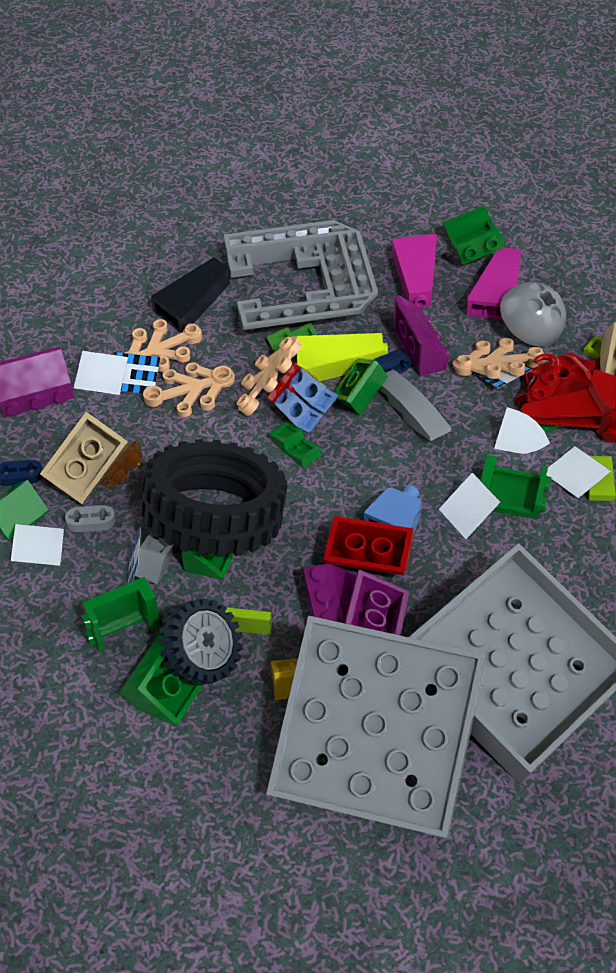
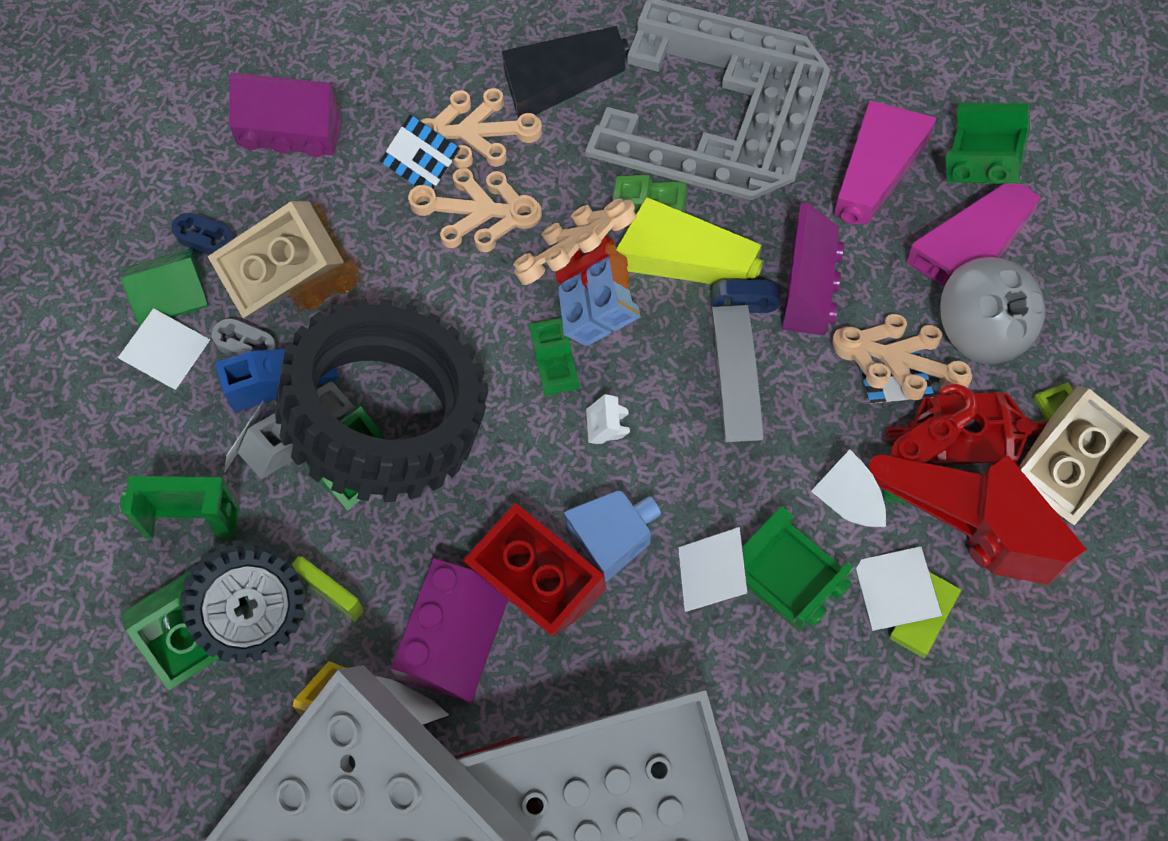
camera: 30 degrees right, 15 degrees up
(100, 372) = (381, 135): white sticker -> none
(117, 528) = (255, 377): none -> blue slope
(351, 461) = (604, 420): none -> white tile
(360, 384) = (683, 312): green slope -> none
(377, 604) = (471, 681): magenta slope -> none

